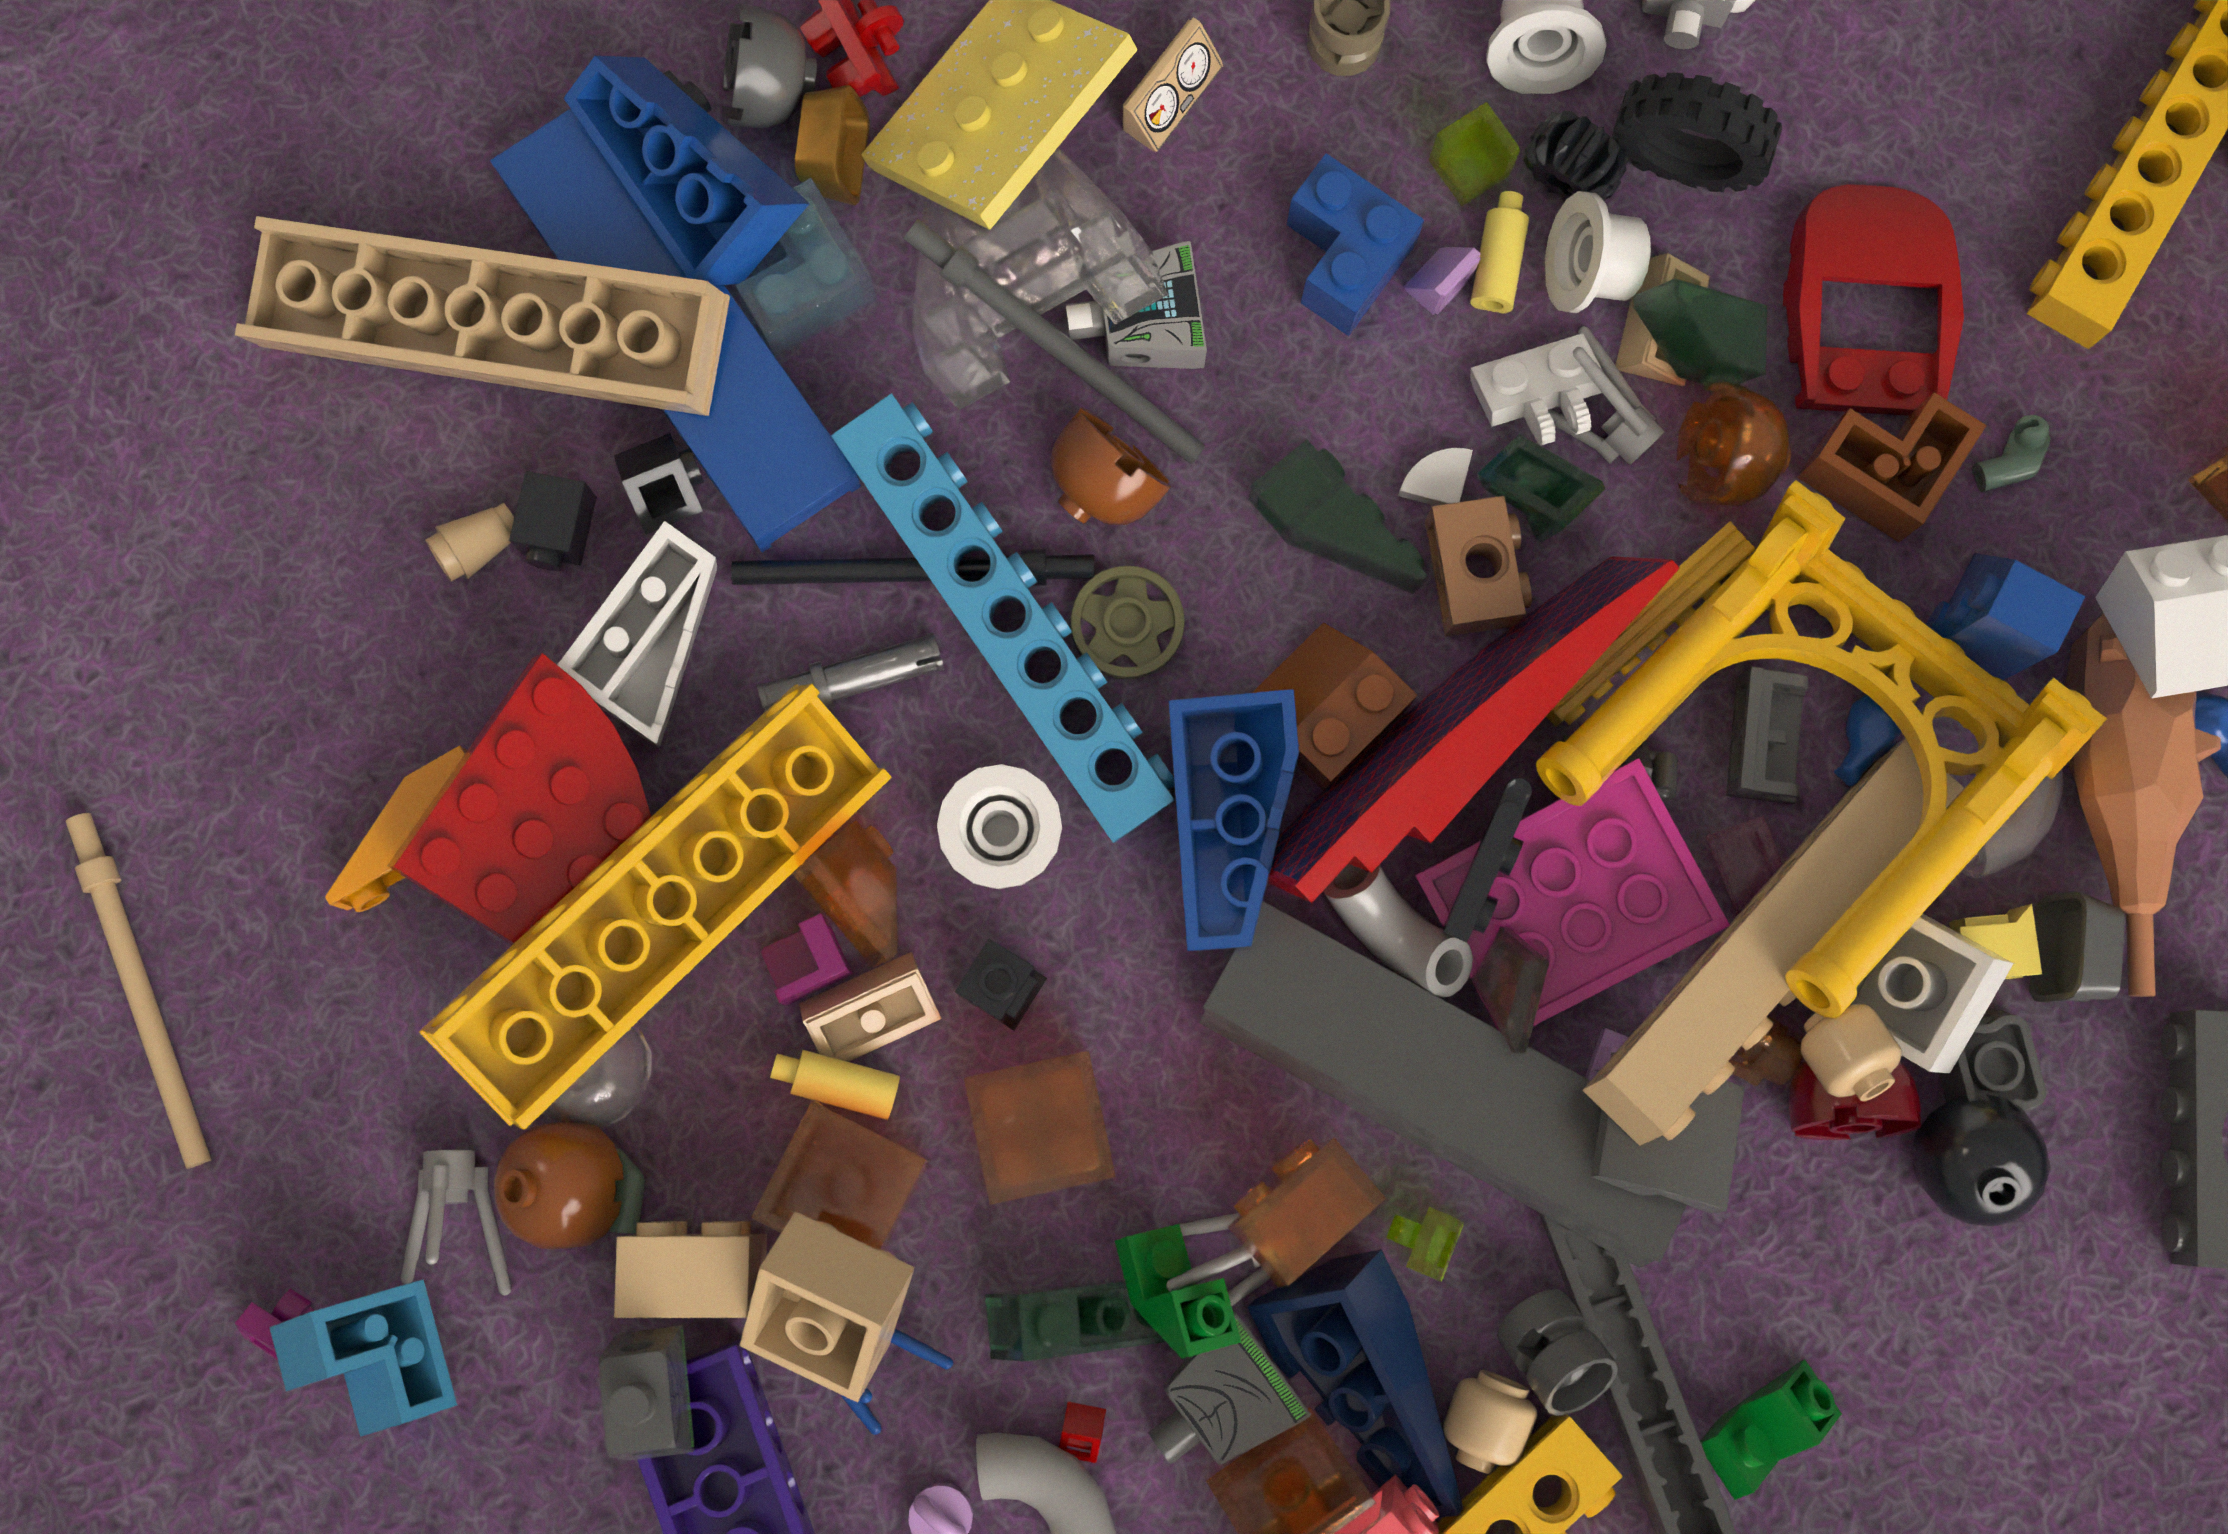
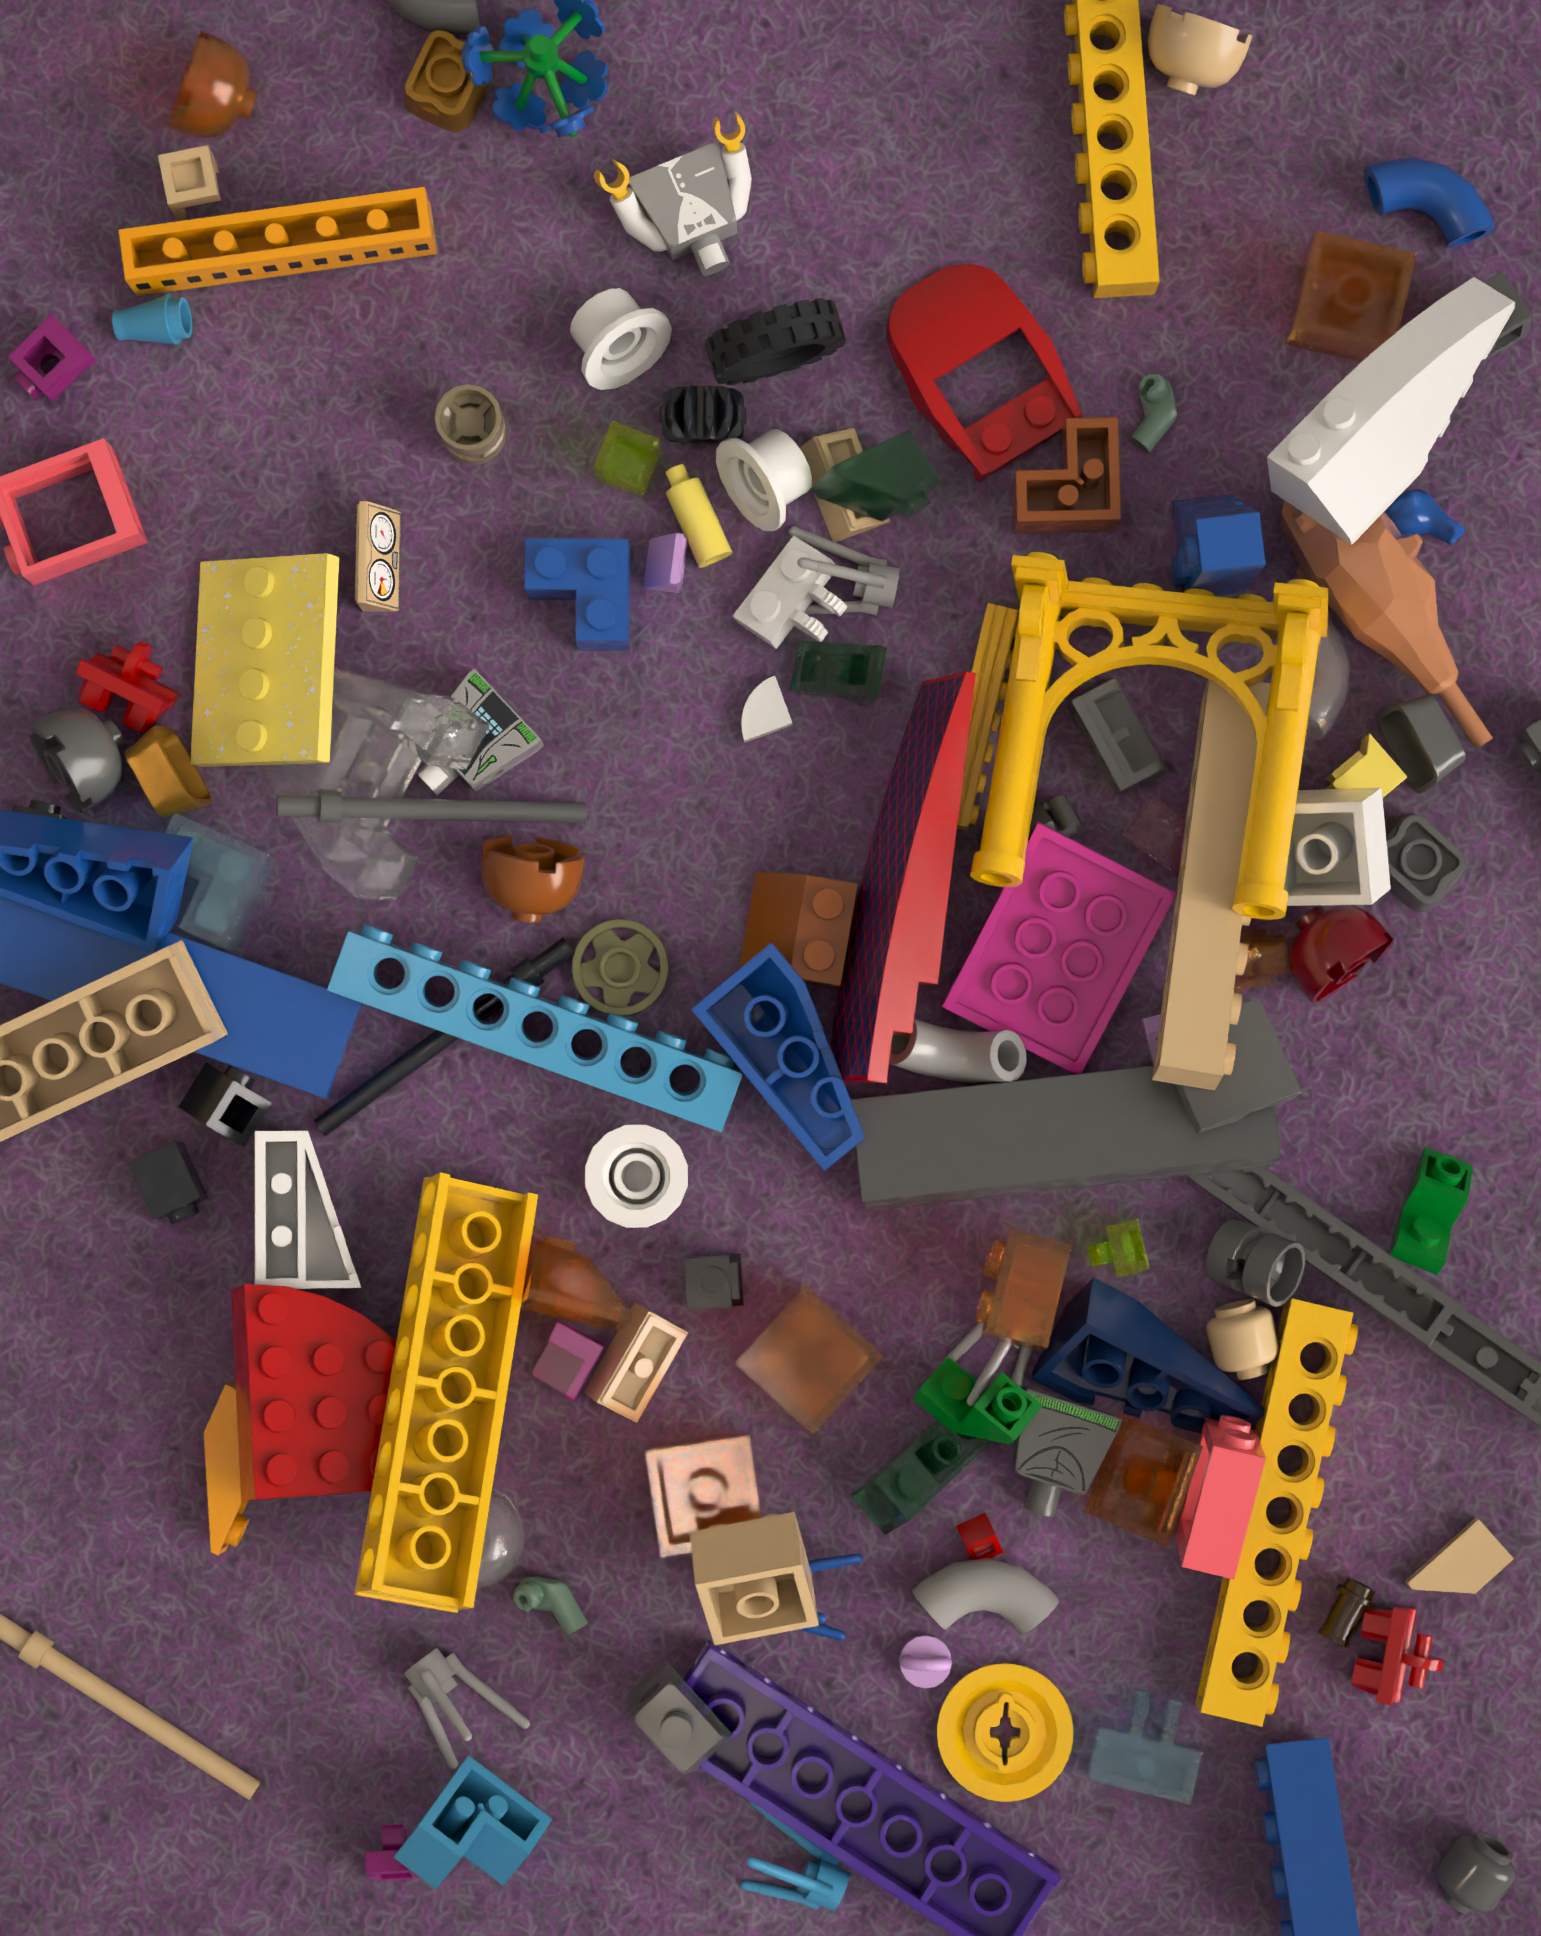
camera: 30 degrees left, 5 degrees up
(471, 541) = (122, 1236): tan cone -> none
(559, 1185) = (514, 1628): dark orange cylinder -> none
(687, 1275) = (646, 1622): tan brick -> none
(838, 1083) = (650, 1426): light yellow cylinder -> none
(861, 672) = (460, 1137): flat silver pin -> none
(1324, 516) = (702, 797): clear green slope -> none
(1486, 530) = (846, 787): medium nougat brick -> none
(1495, 854) = (986, 957): black hinge -> none
(1511, 986) = (1057, 1038): clear smoke piece -> none
(1739, 436) = (953, 539): clear orange cylinder -> none
(1851, 1052) = (1312, 928): tan head -> none
(1870, 737) = (1188, 691): blue animal -> none
(1981, 1160) = (1450, 932): black cylinder -> none

